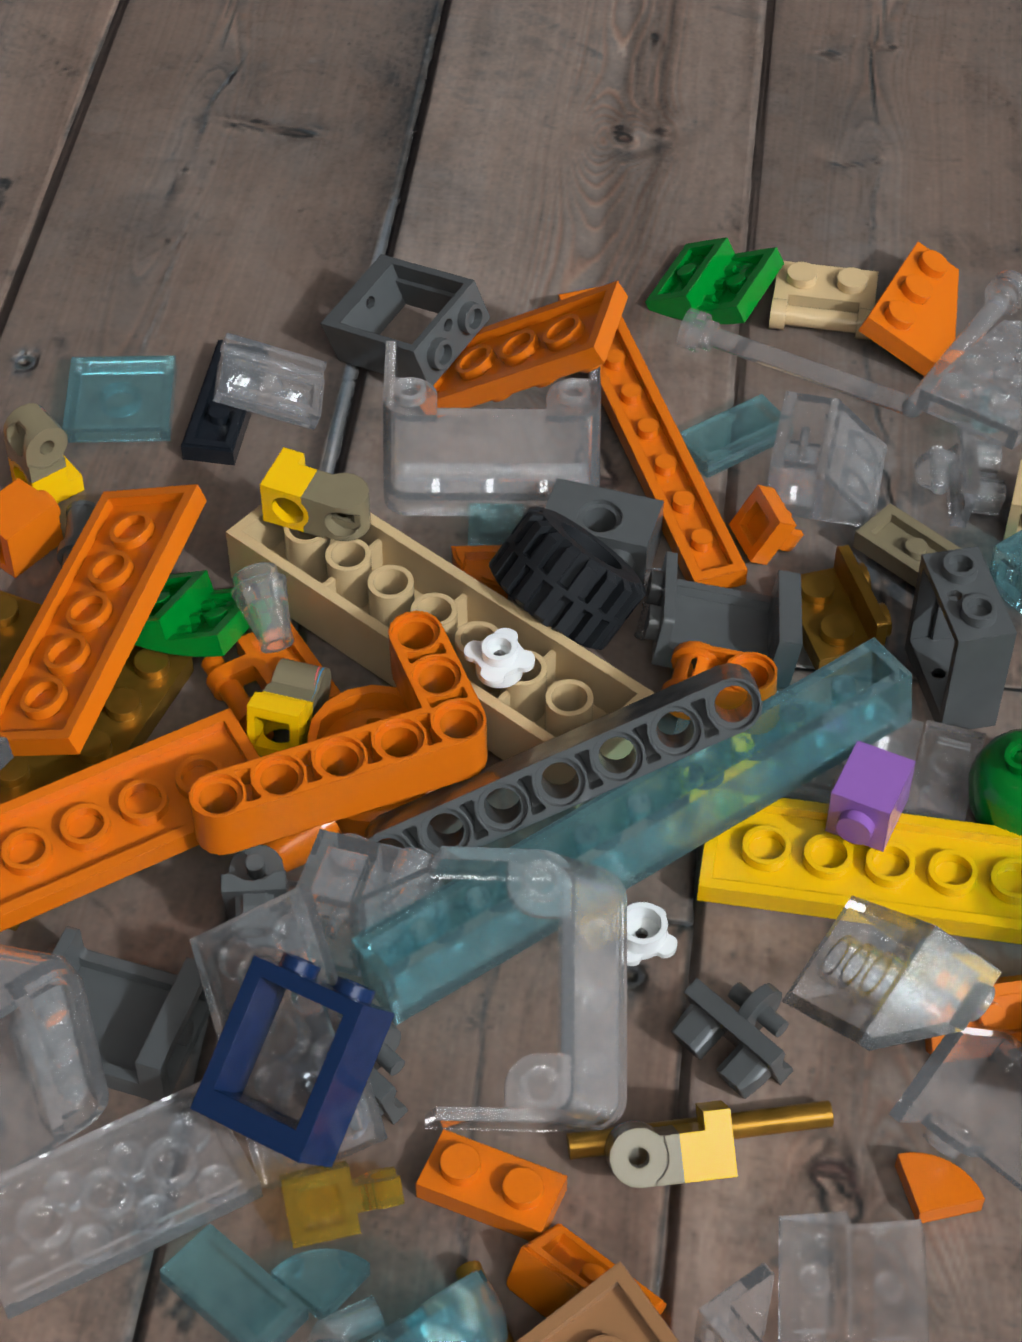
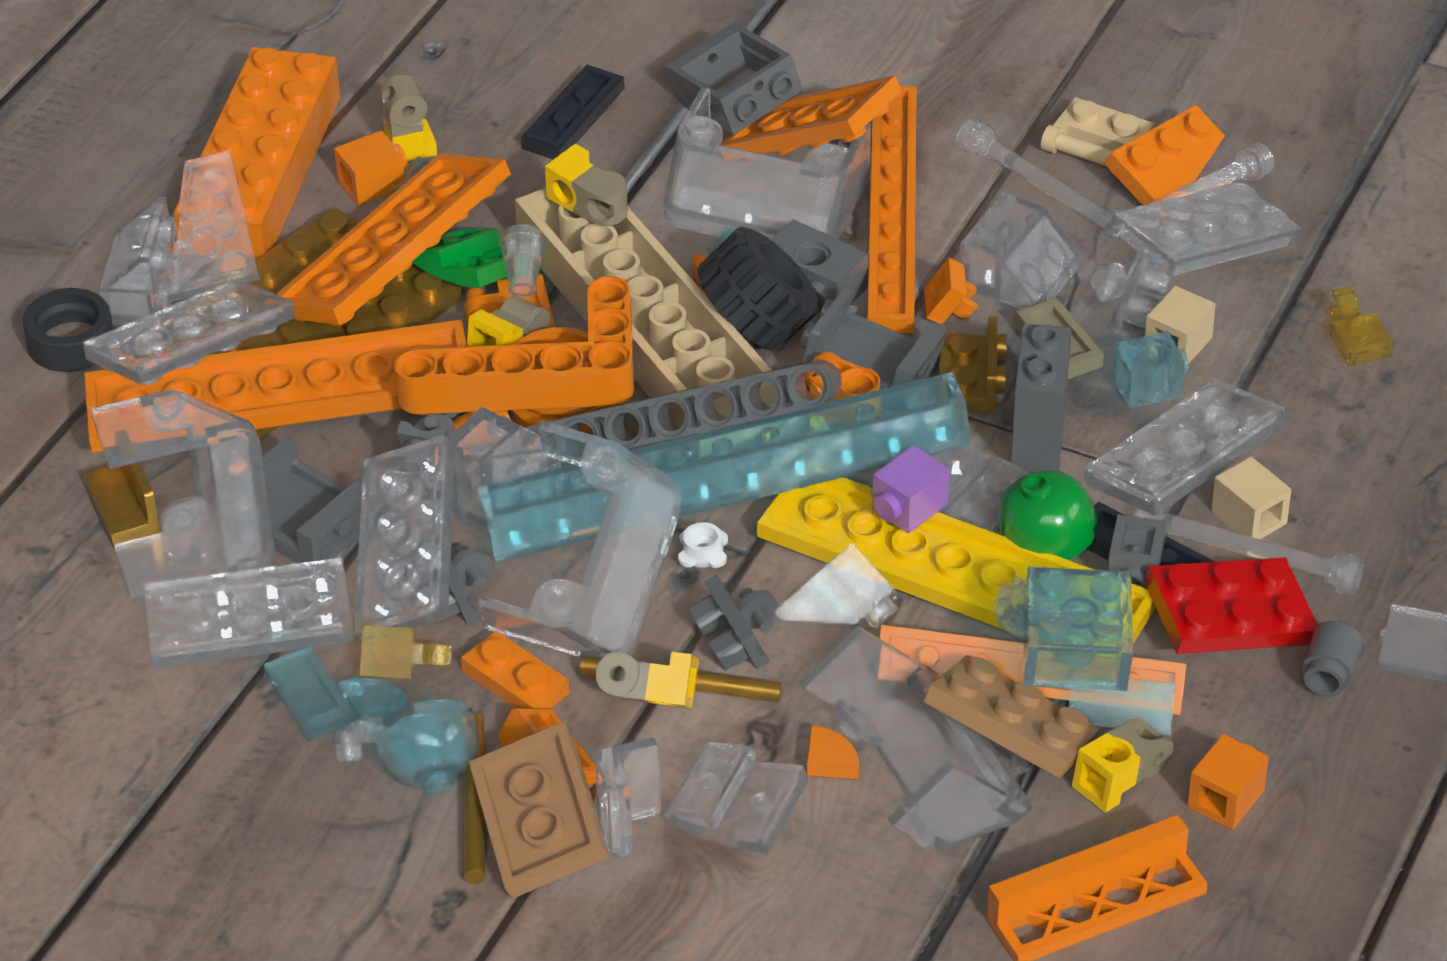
camera: 20 degrees right, 5 degrees down
(120, 399) = (491, 93): clear light blue tile -> none
(270, 381) = (608, 102): clear plate -> none
(342, 1077) = (420, 561): dark blue window -> none
(499, 658) = (672, 329): white plate -> none
(715, 281) = (1013, 102): green slope -> none
(733, 435) = (950, 224): clear light blue tile -> none

